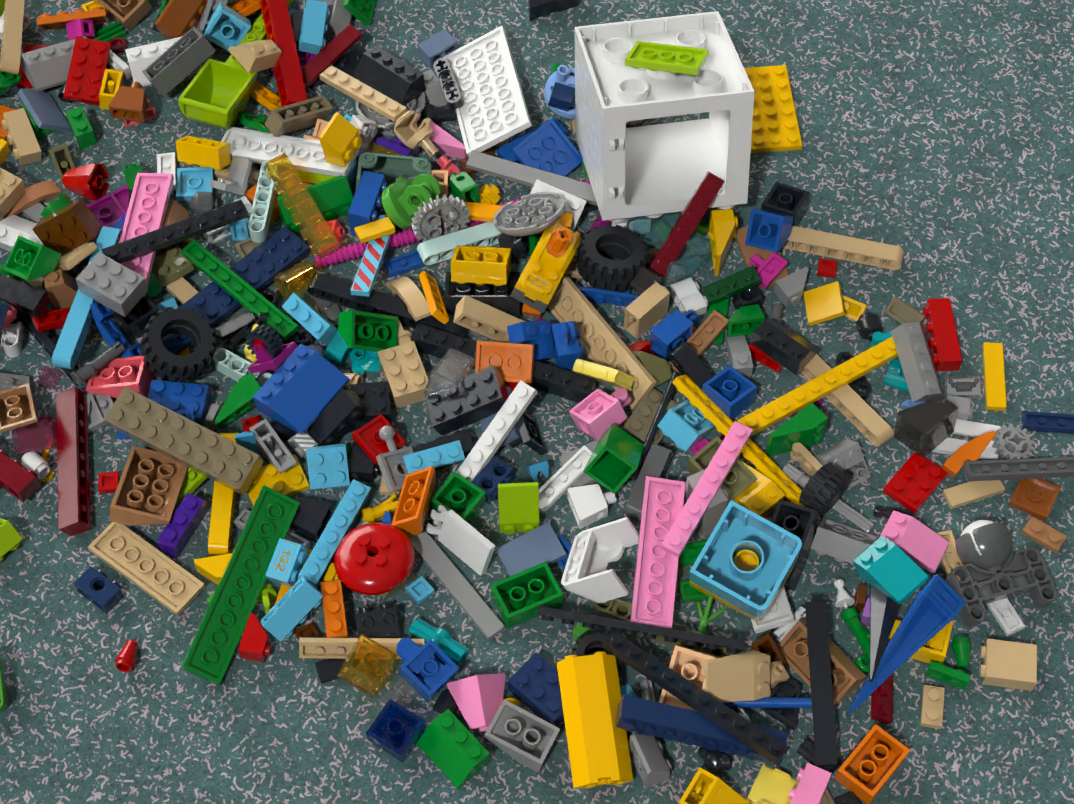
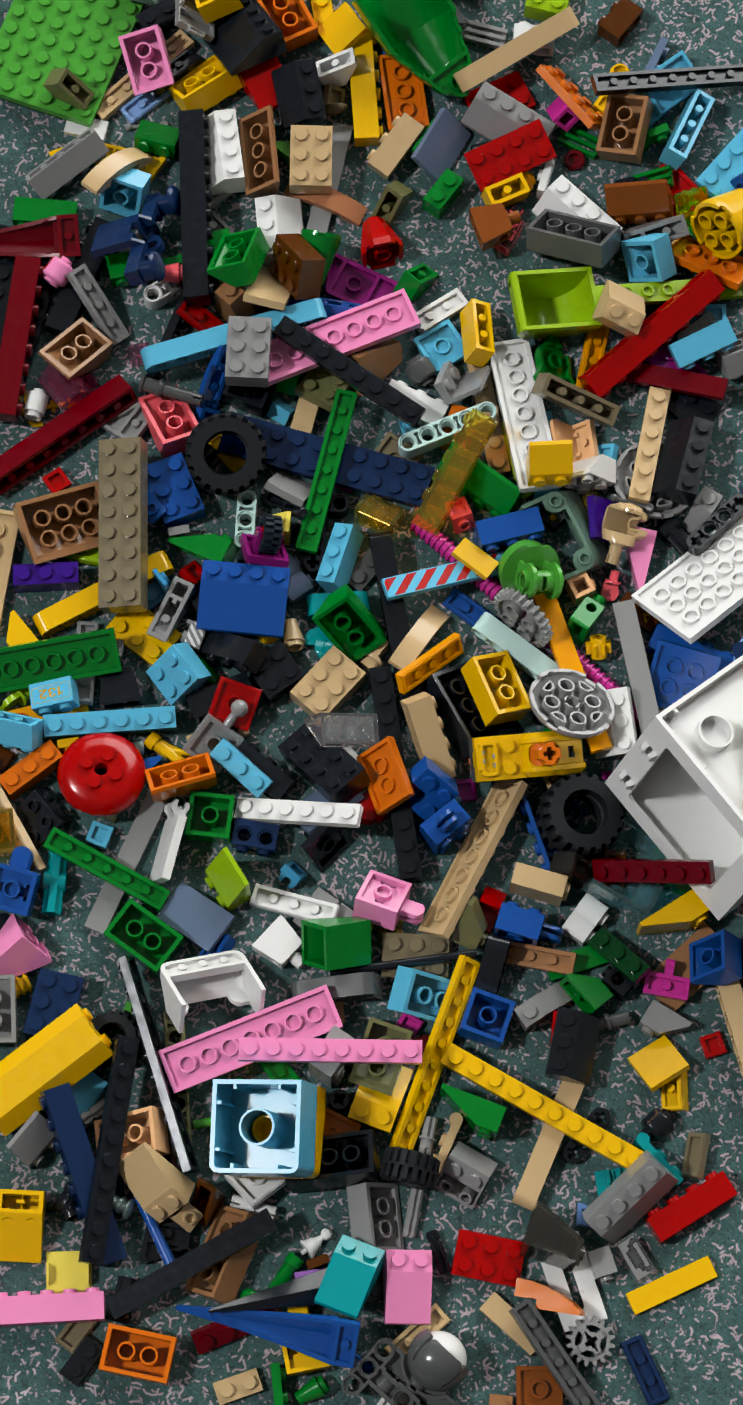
camera: 60 degrees right, 15 degrees up
(452, 595) = (106, 869): none -> green plate
(604, 374) = (430, 881): light yellow piece -> none

